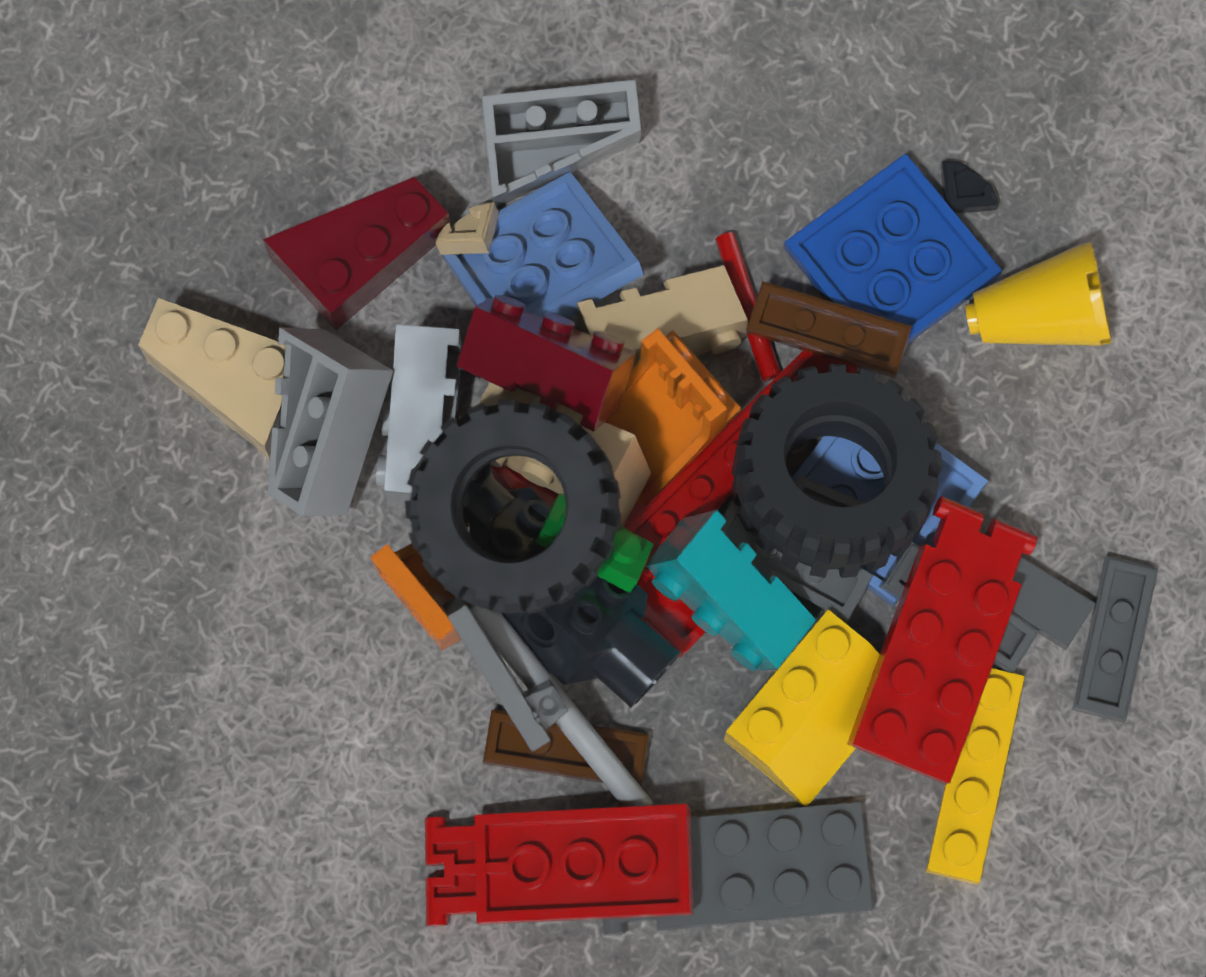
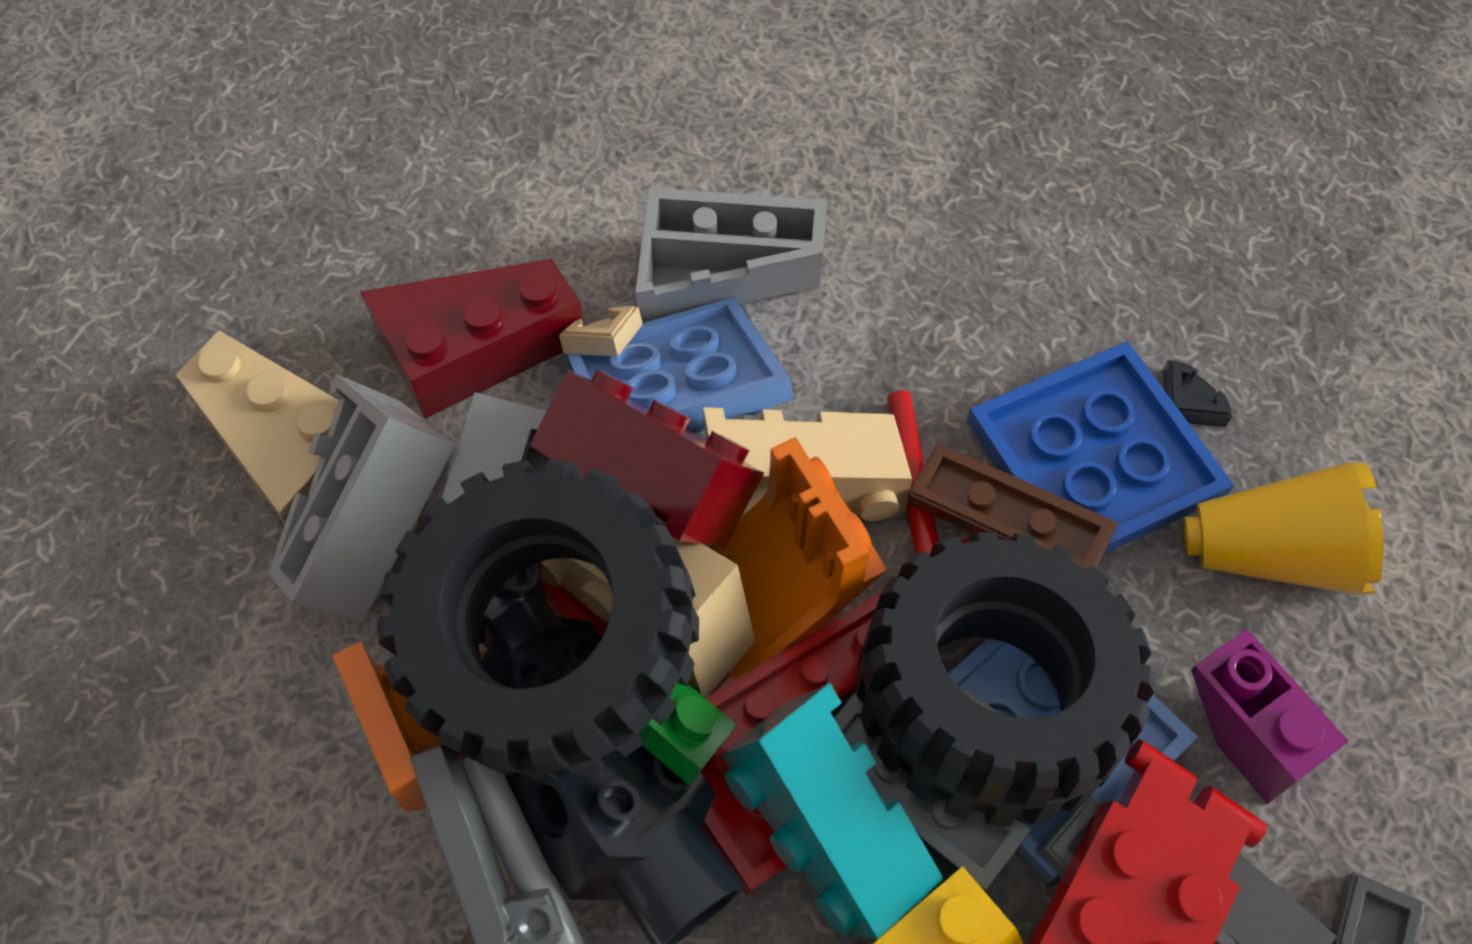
camera: 10 degrees right, 15 degrees down
(1032, 456) = (1263, 716): none -> magenta slope

